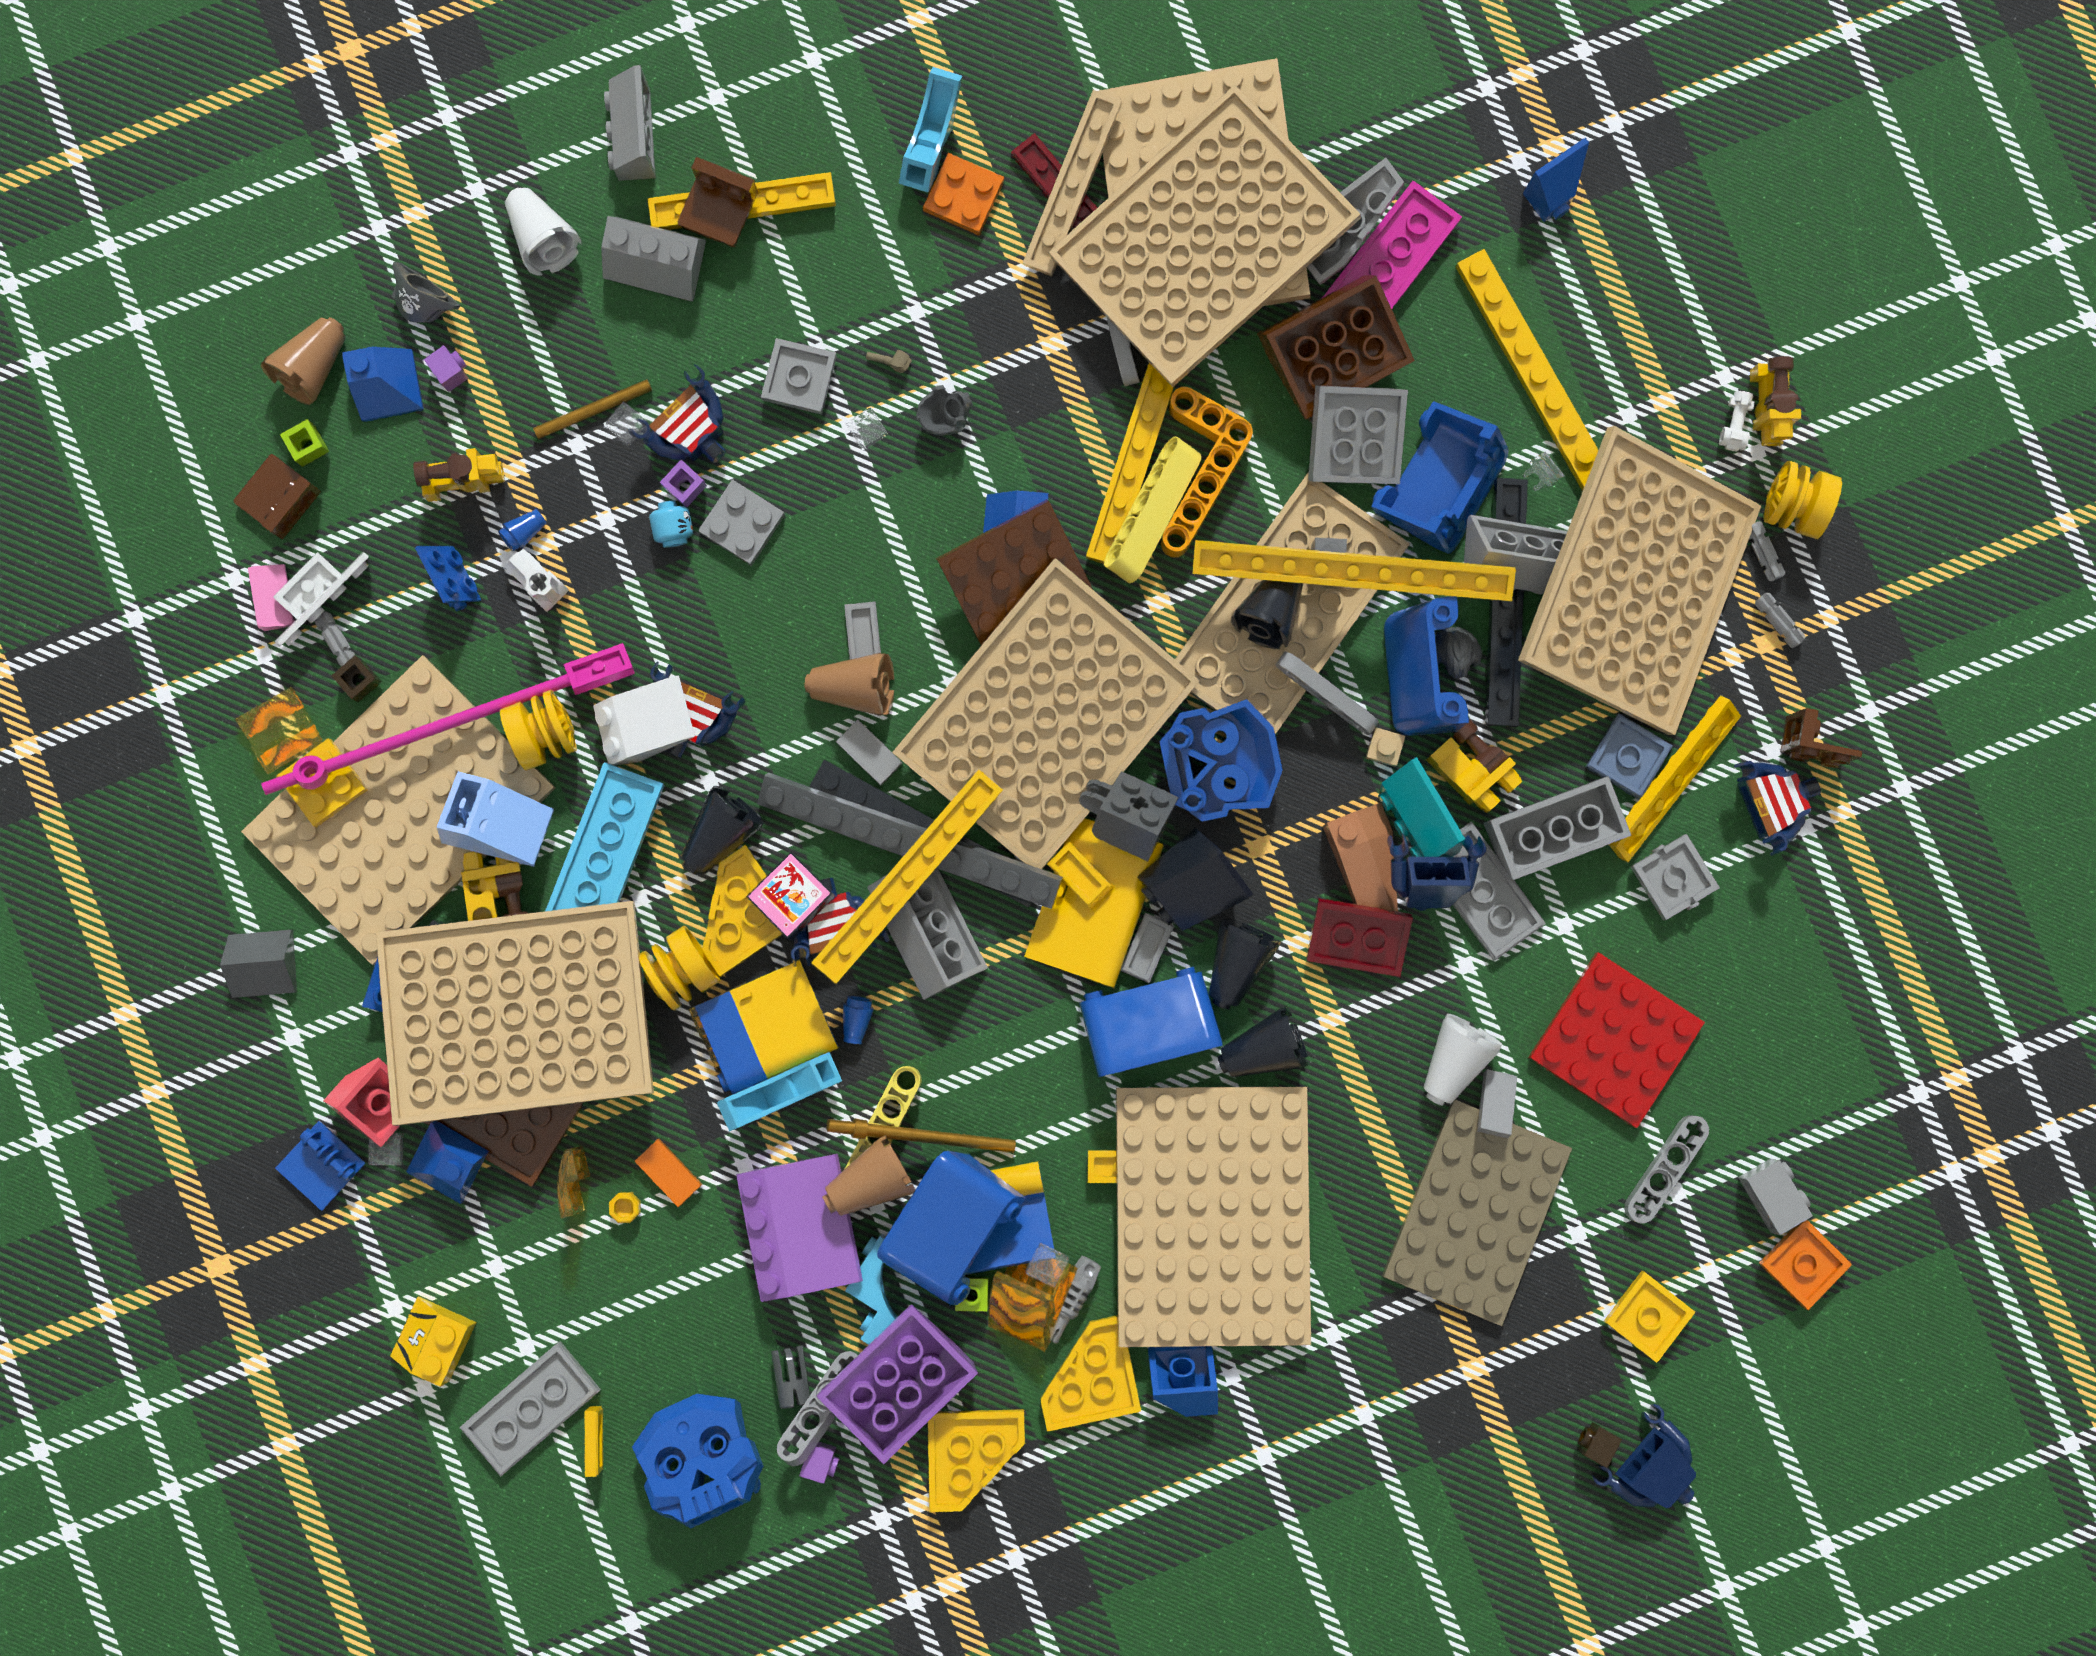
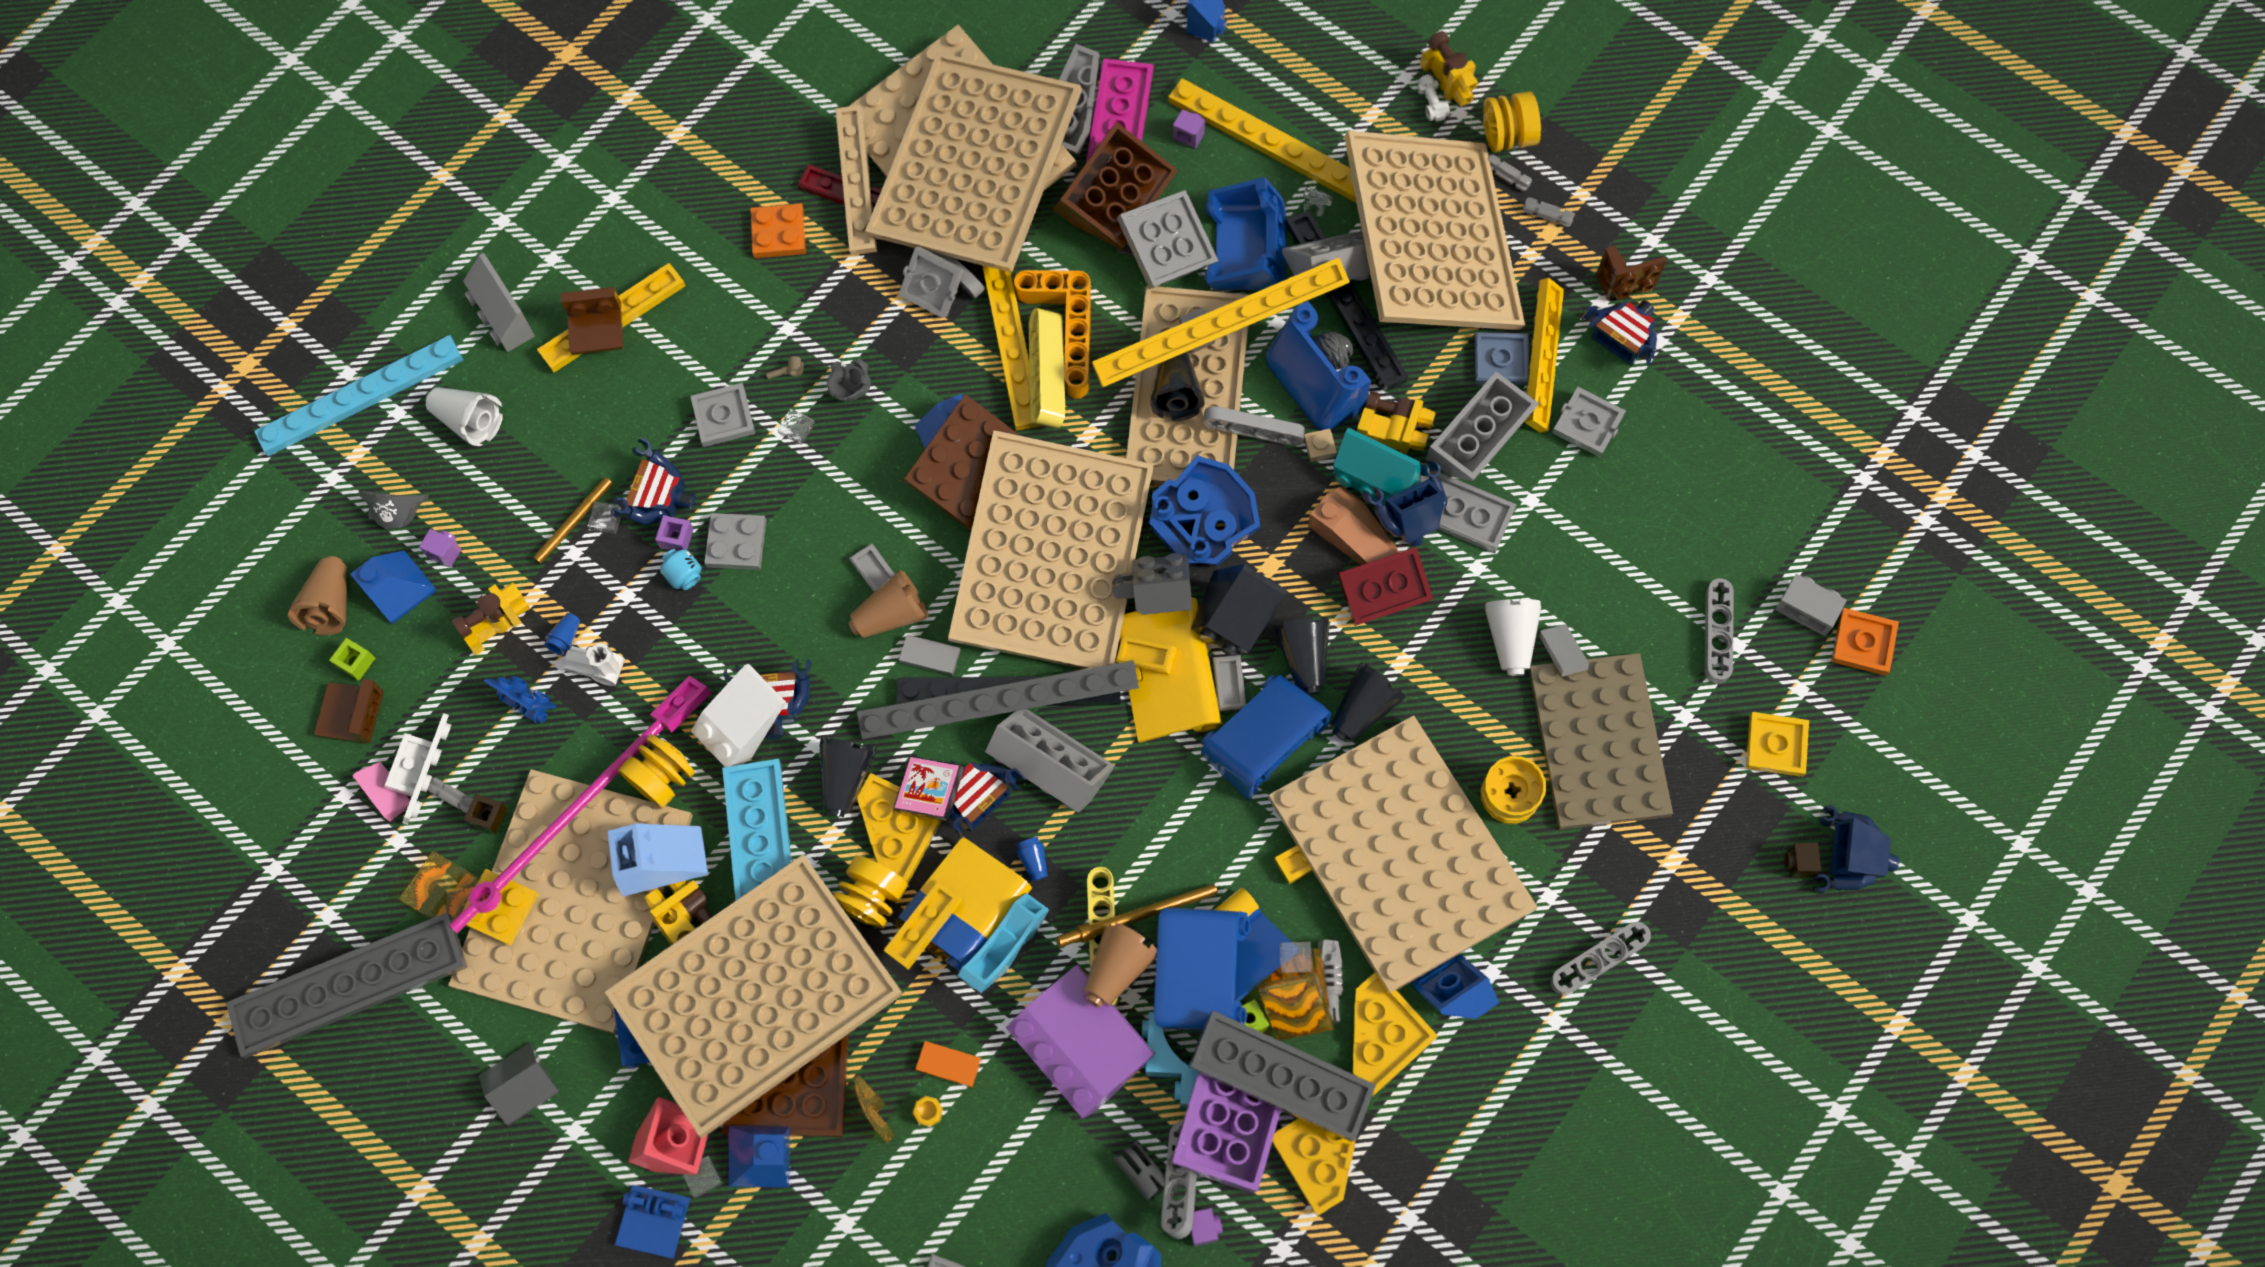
camera: 25 degrees left, 15 degrees down
(145, 779) = (345, 985): none -> dark grey plate
(446, 149) = (358, 395): none -> medium azure plate
(651, 257) = (562, 387): light grey slope -> none
(711, 1032) = (923, 925): none -> yellow plate
(906, 877) = (1012, 720): yellow plate -> none
(932, 130) = (729, 194): medium azure arch -> none
(965, 1374) = (1282, 1076): none -> dark grey plate
(1086, 346) = (931, 282): none -> light grey plate
(1343, 1429) = (1599, 956): none -> light grey beam
(1363, 1236) = (1522, 777): none -> yellow wheel
(1457, 313) = (1189, 128): none -> medium lavender plate
(1616, 1040) = (1621, 559): red plate -> none

